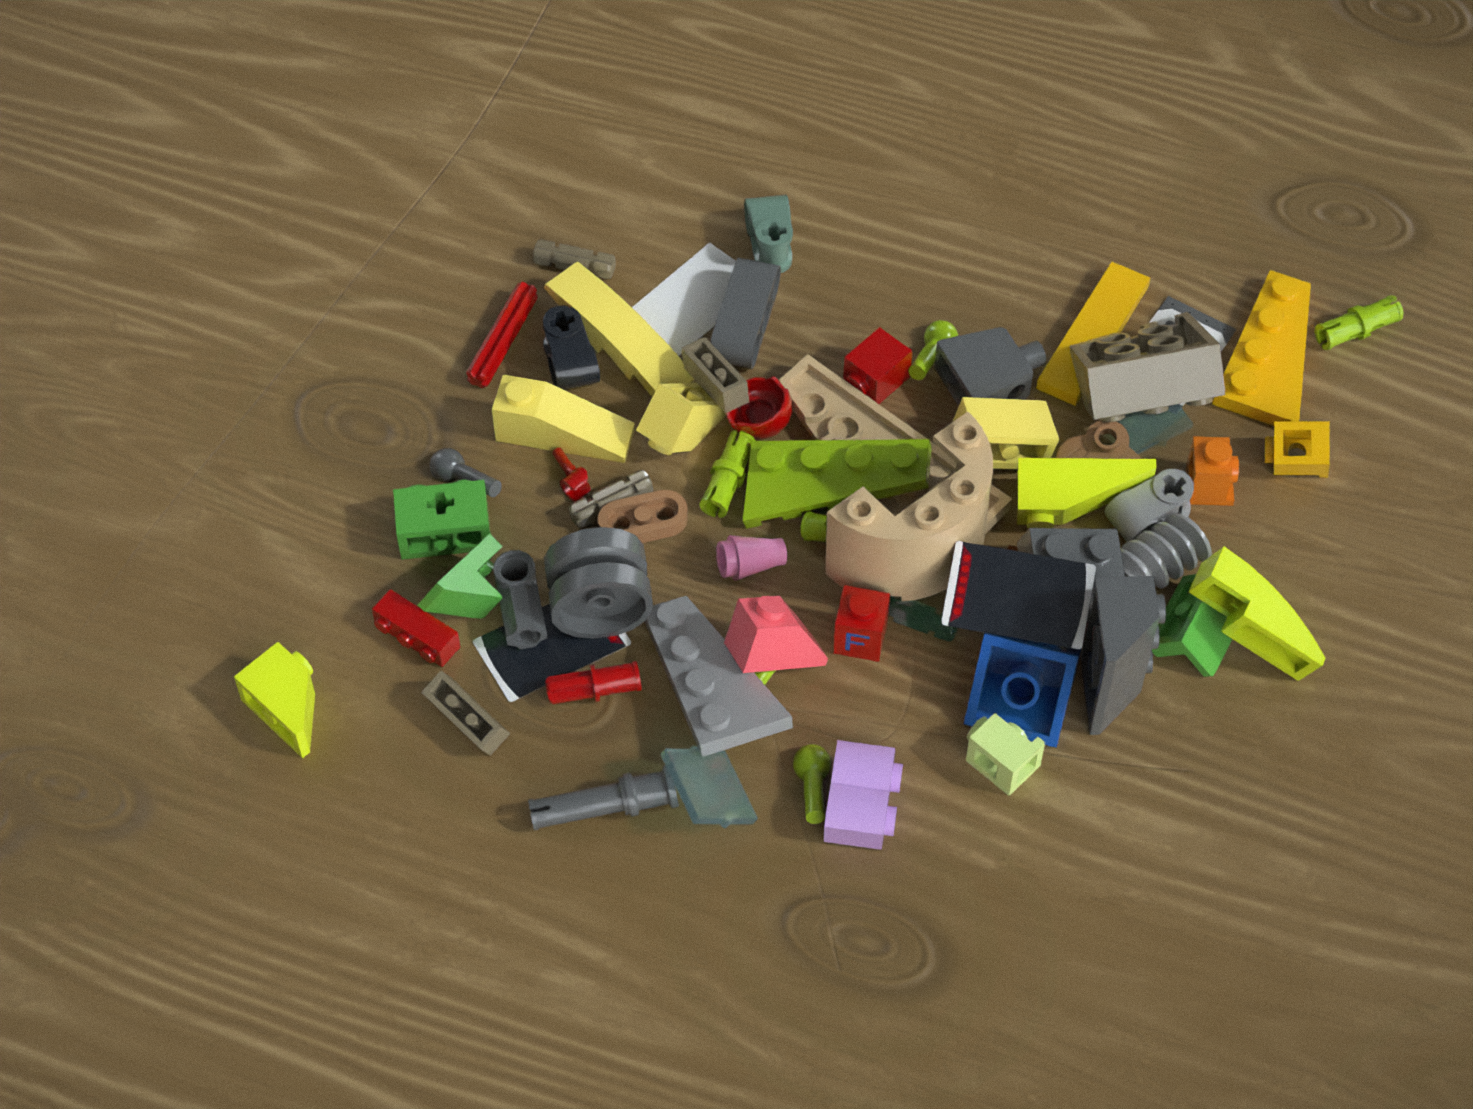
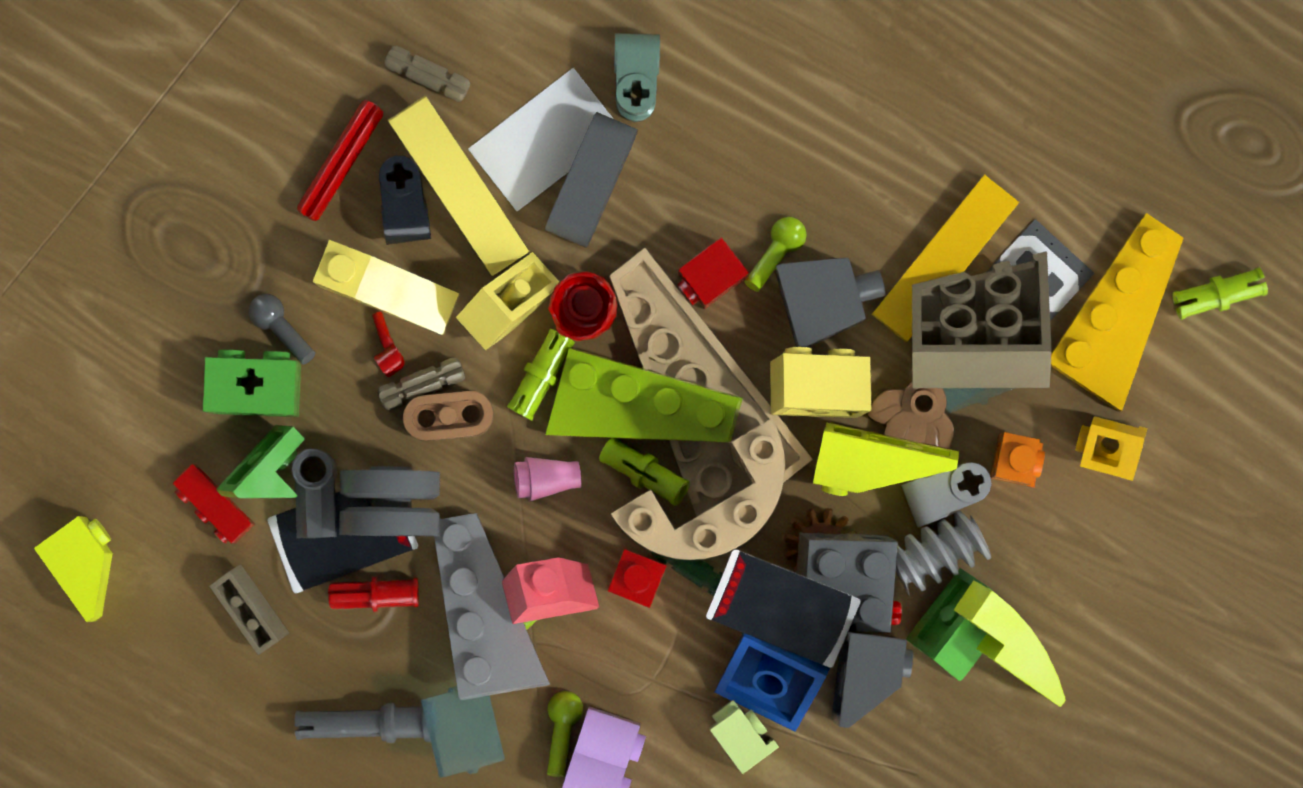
camera: 10 degrees right, 30 degrees up
(715, 375) = (543, 269): dark tan piece -> none

